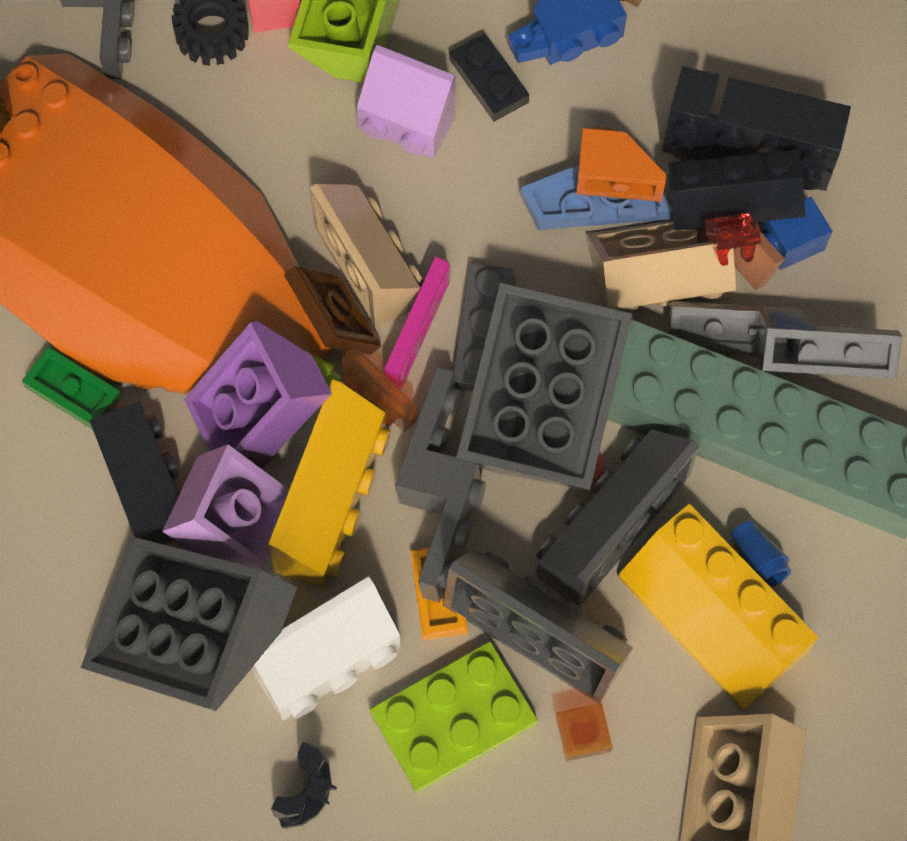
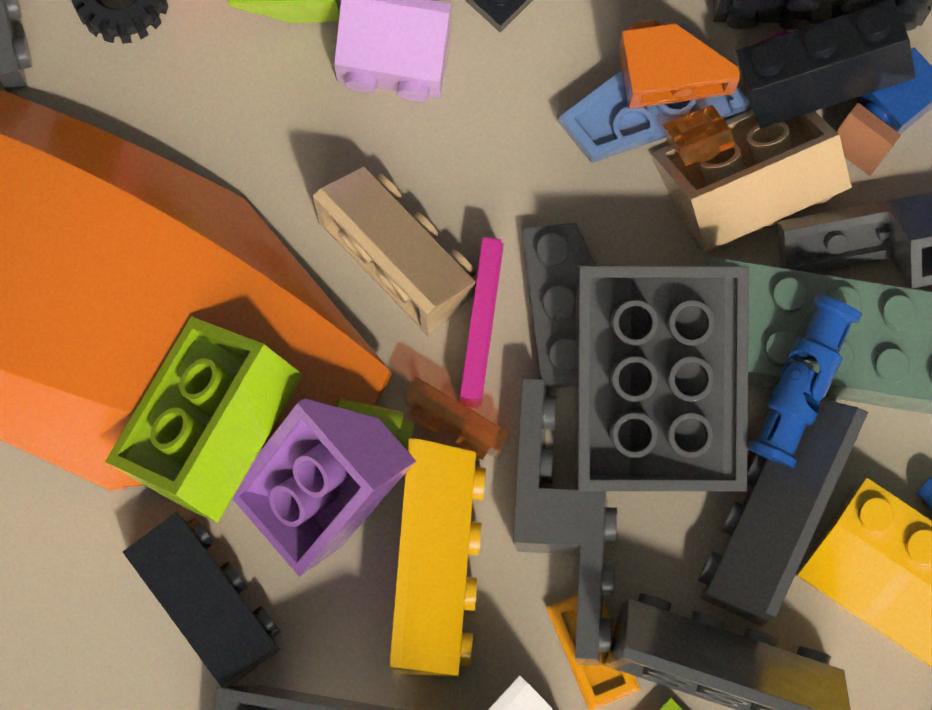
camera: 15 degrees left, 10 degrees up
(70, 387) = (85, 509): green plate -> none
(180, 327) = (205, 417): none -> lime slope
(227, 508) = (326, 628): lavender brick -> none
(333, 310) = (377, 336): reddish brown tile -> none
(624, 223) = (699, 135): none -> clear orange plate
(651, 417) = (798, 394): none -> blue piece
(732, 233) = (839, 128): clear red tile -> none

